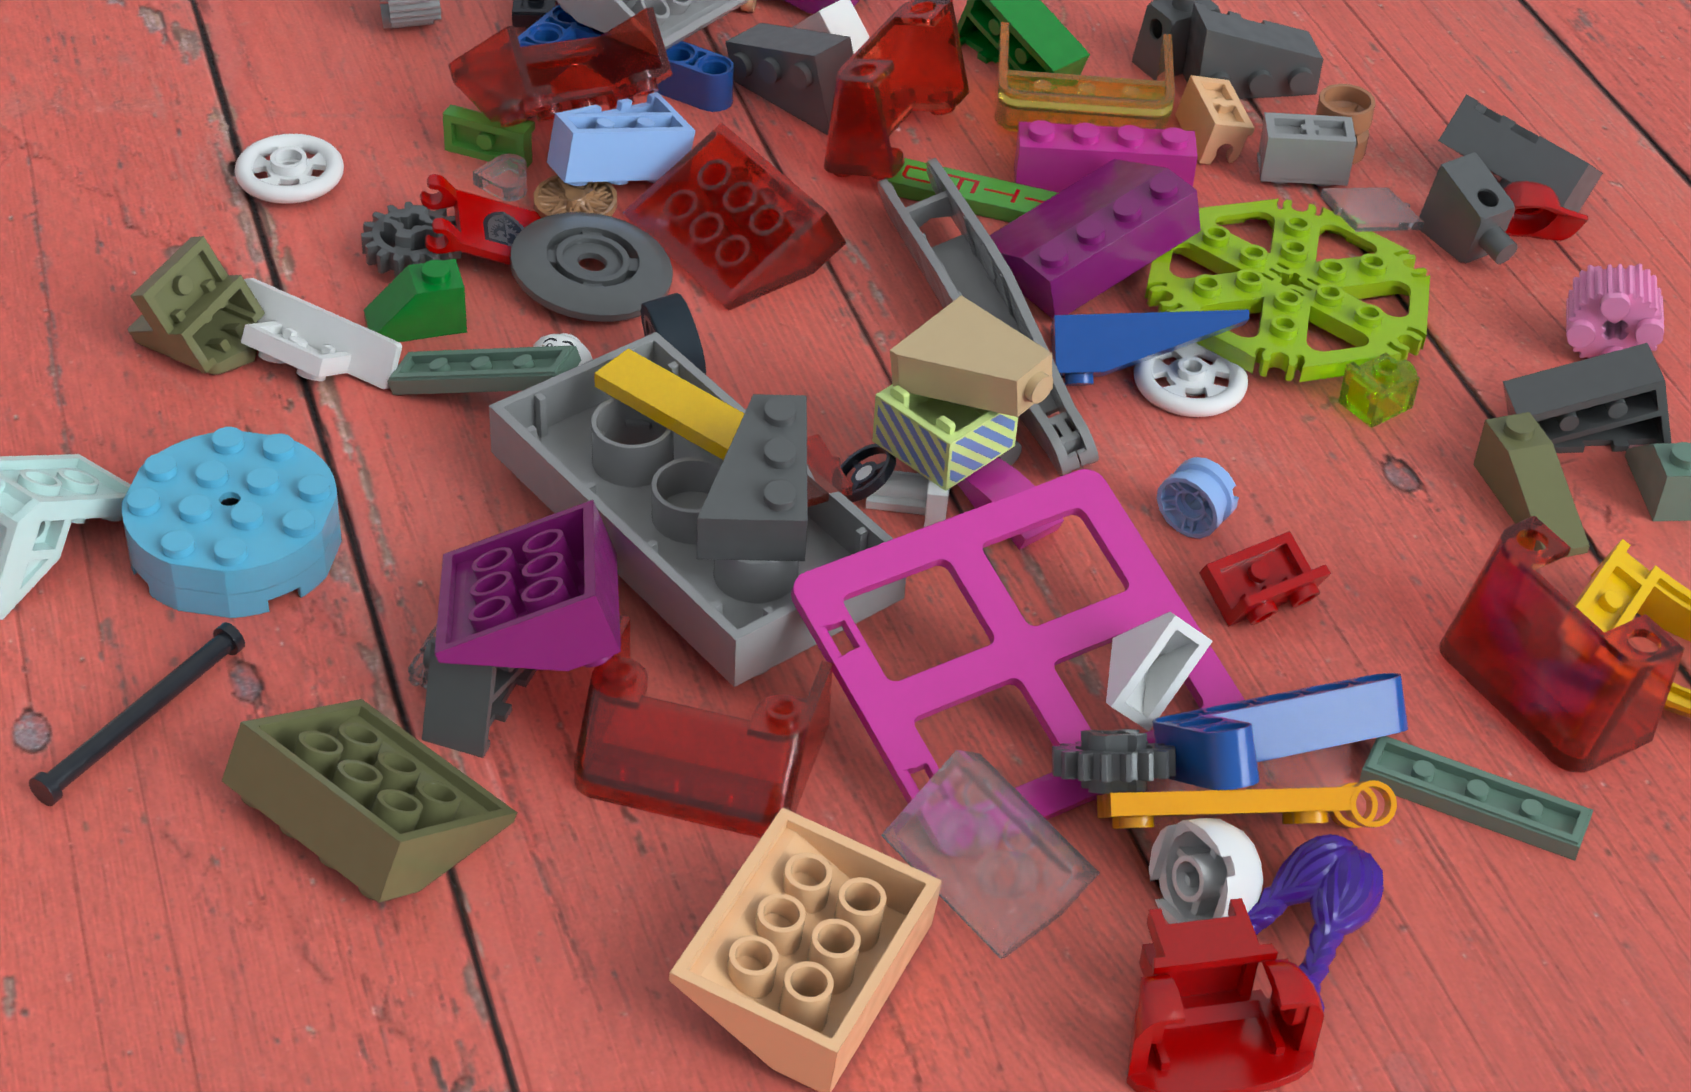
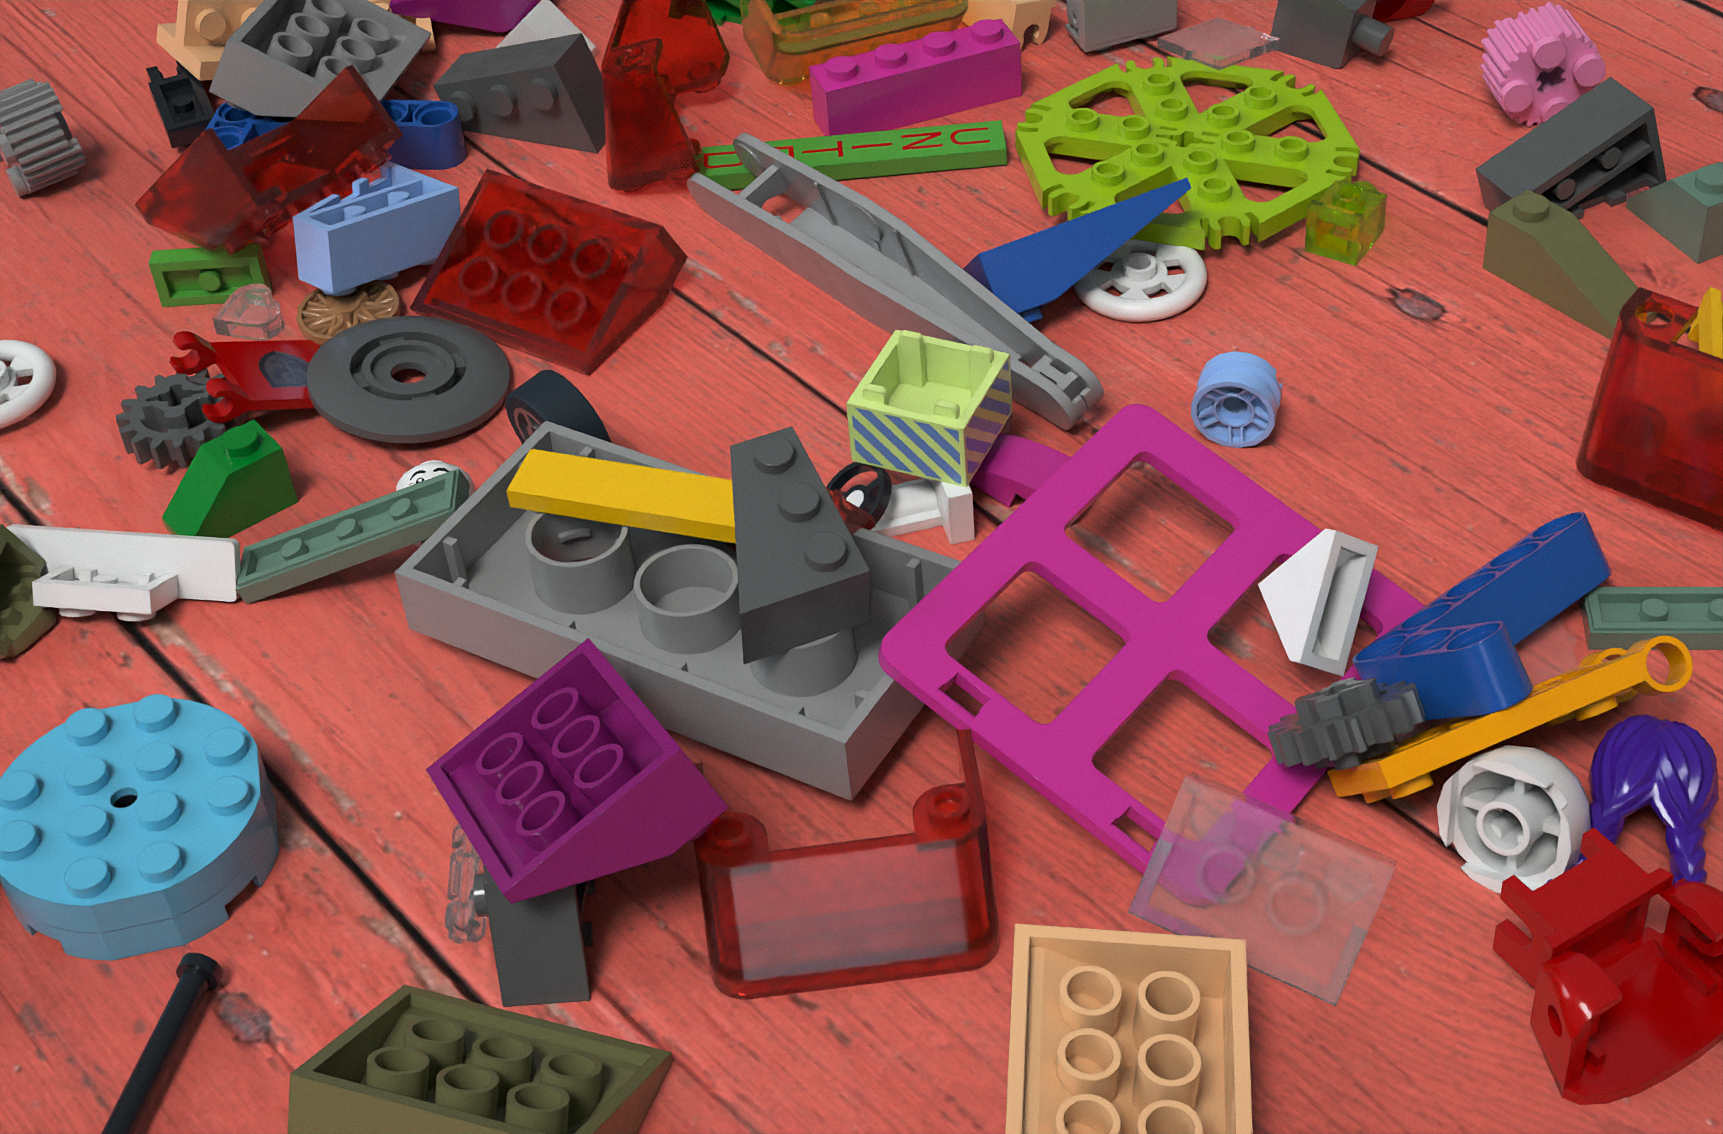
camera: 15 degrees left, 0 degrees up
(973, 361) = (948, 326): tan slope -> none
(1097, 233) = (963, 150): magenta slope -> none
(1262, 578) = (1354, 463): red bracket -> none

